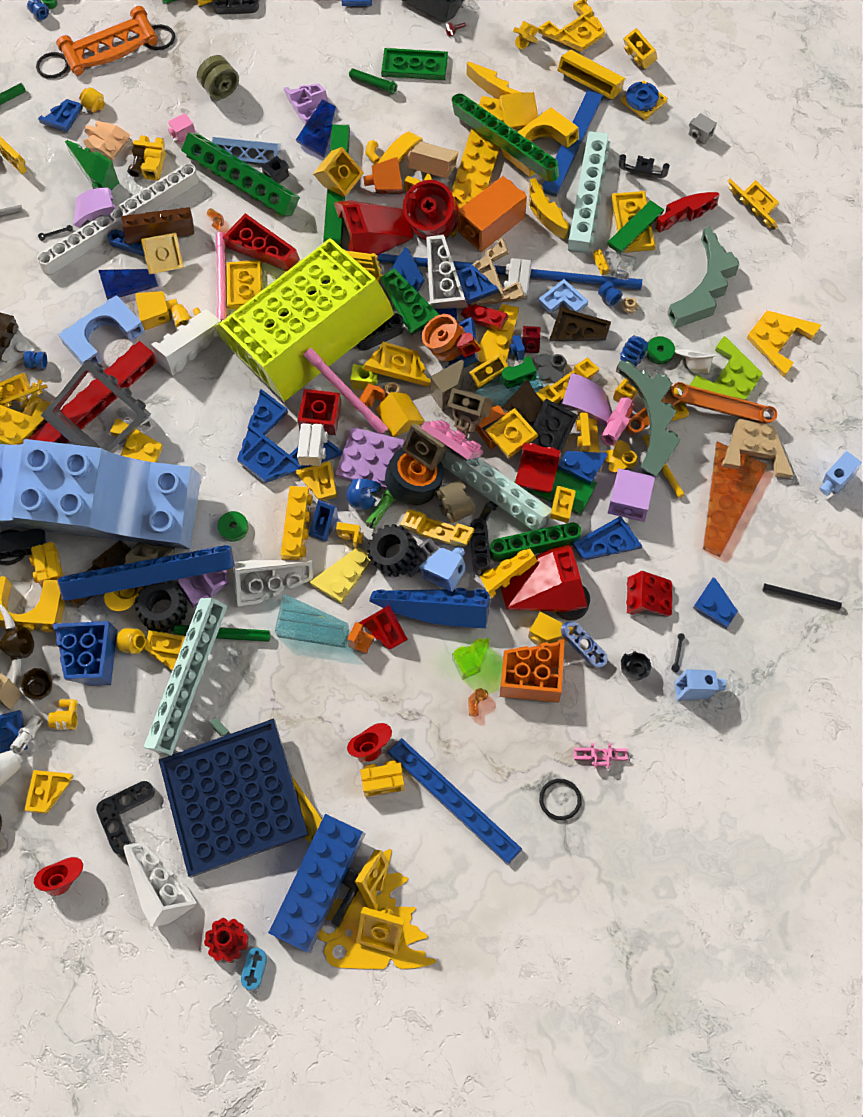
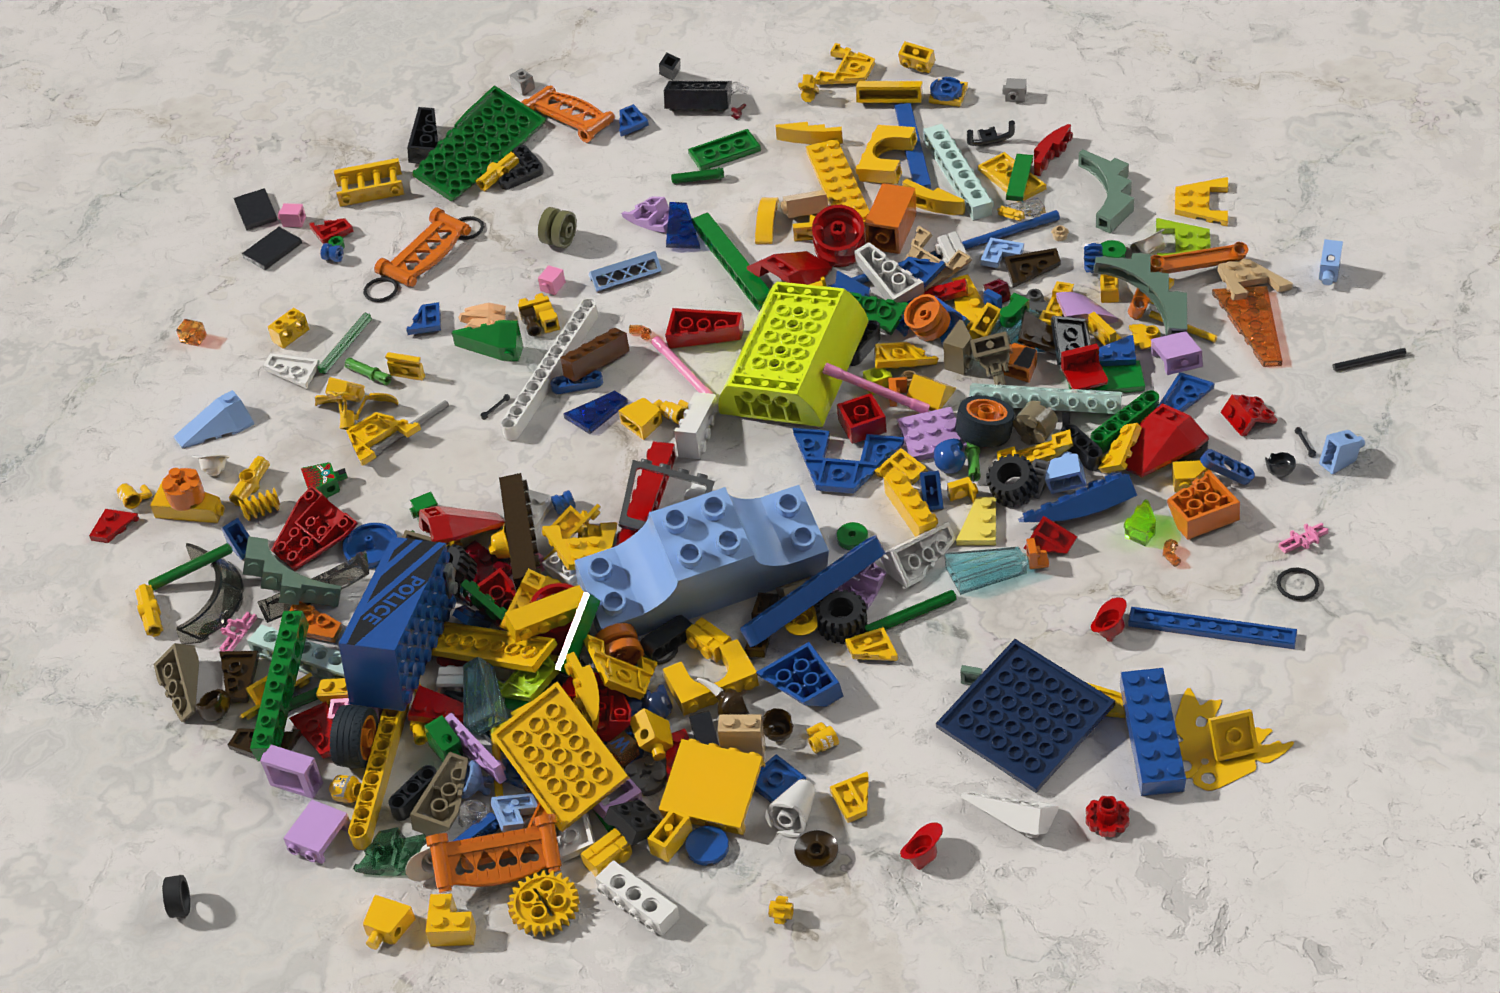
camera: 25 degrees left, 20 degrees down
(26, 734) = (800, 764): white pin -> none
(92, 99) = (447, 295): yellow head -> none
(93, 204) = (519, 367): lavender slope -> none
(111, 313) = (606, 436): light blue arch -> none
(117, 809) = (931, 784): black beam -> none
(130, 641) = (836, 653): yellow head -> none
(162, 253) = (618, 371): yellow tile -> none
(185, 676) = (911, 650): light aqua brick -> none
(217, 159) = (577, 281): green brick -> none
(243, 282) = (708, 365): yellow tile -> none
(259, 970) = (1151, 823): dark azure beam -> none
(276, 169) = (667, 273): black brick -> none
(311, 444) = (877, 441): white brick -> none
(338, 172) = (731, 244): yellow slope -> none
(350, 882) = (1182, 722): black brick -> none
(370, 151) = (741, 226): yellow arm -> none
(372, 878) = (1193, 706): yellow wing -> none
(382, 779) = (1141, 640): yellow brick -> none
(385, 177) = (774, 234): orange torso -> none
(424, 447) = (983, 386): dark tan slope -> none
(454, 440) = (1001, 374): bright pink plate -> none
(467, 344) = (954, 309): red brick -> none
(505, 137) = (858, 159): green beam -> none
(511, 433) = (1042, 354): yellow tile -> none
(518, 109) = (848, 140): yellow slope -> none
(562, 504) = (1127, 383): yellow plate -> none
(609, 292) = (1037, 230): blue wheel -> none
(617, 421) = (1122, 310): bright pink piece -> none
(716, 604) = (1307, 396): blue wing -> none
(759, 199) = (1103, 116): yellow bracket -> none

